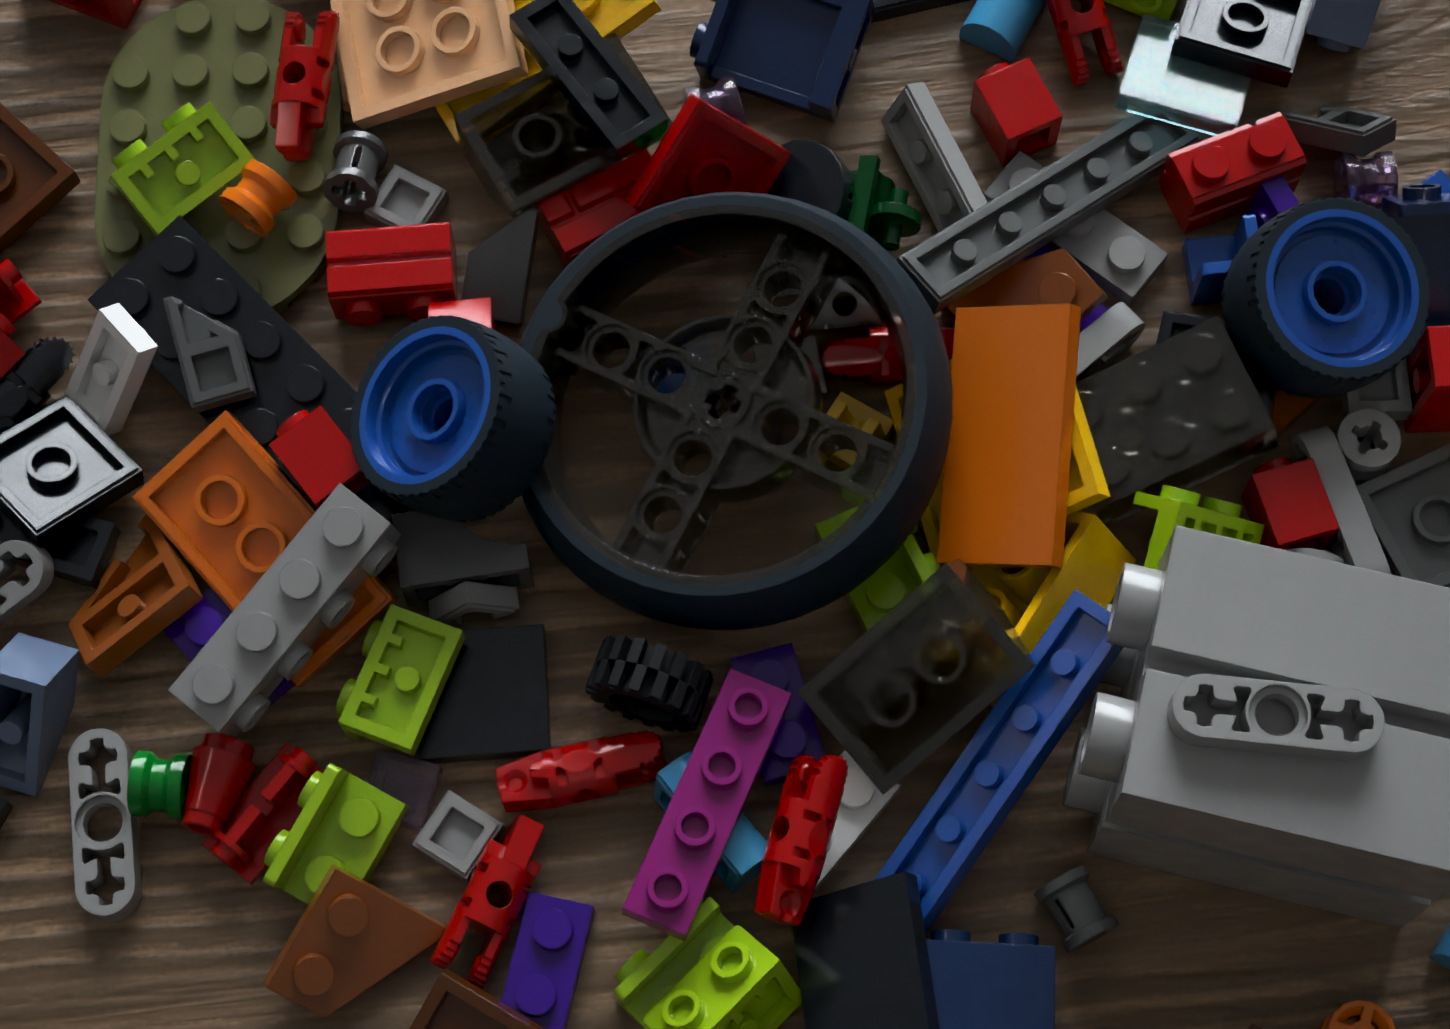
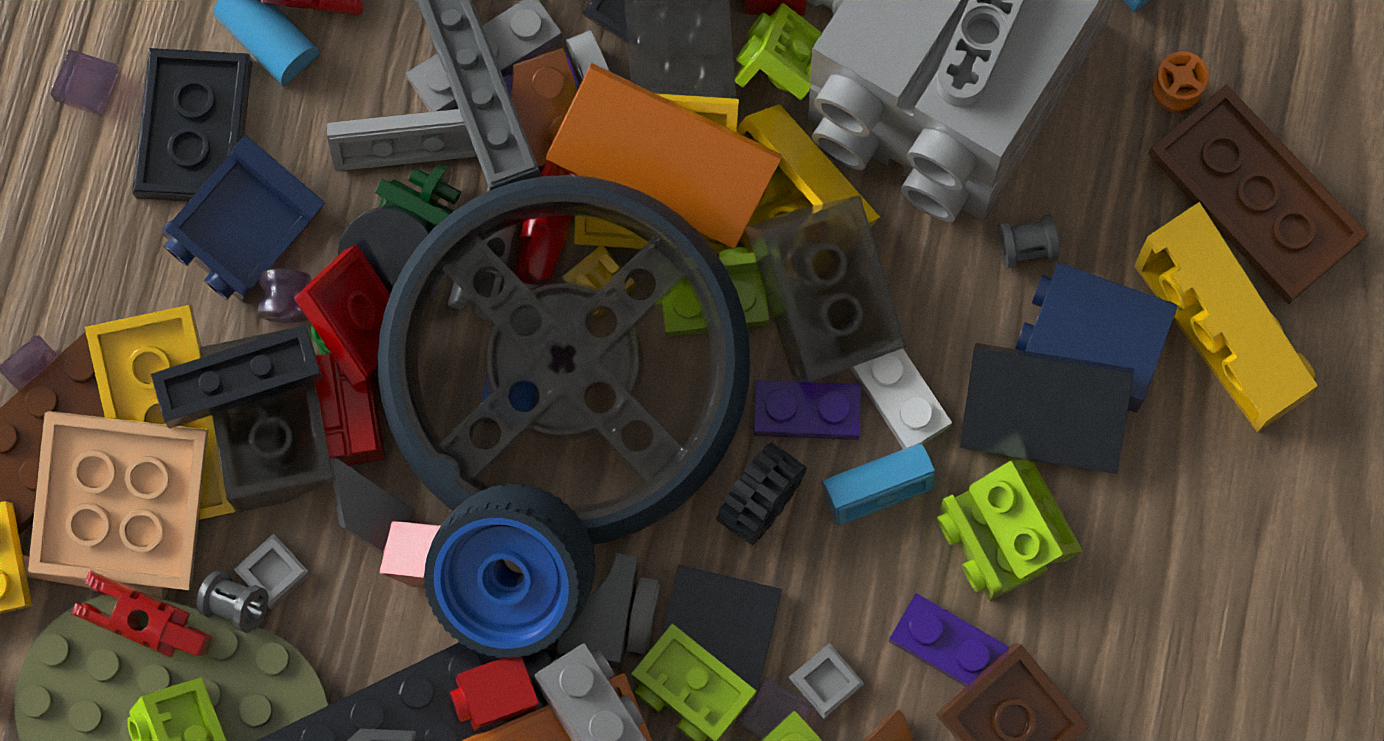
camera: 70 degrees left, 5 degrees up
(258, 198) = (238, 684): orange wheel -> none
(390, 271) = (335, 597): red brick -> none
(512, 873) = (887, 667): red hinge -> none
(580, 771) = (807, 572): red hinge -> none
(706, 805) = (875, 475): magenta plate -> none
(800, 837) = (918, 417): red hinge -> none
(1005, 754) = (908, 246): blue plate -> none
(1015, 110) = (370, 64): red brick -> none

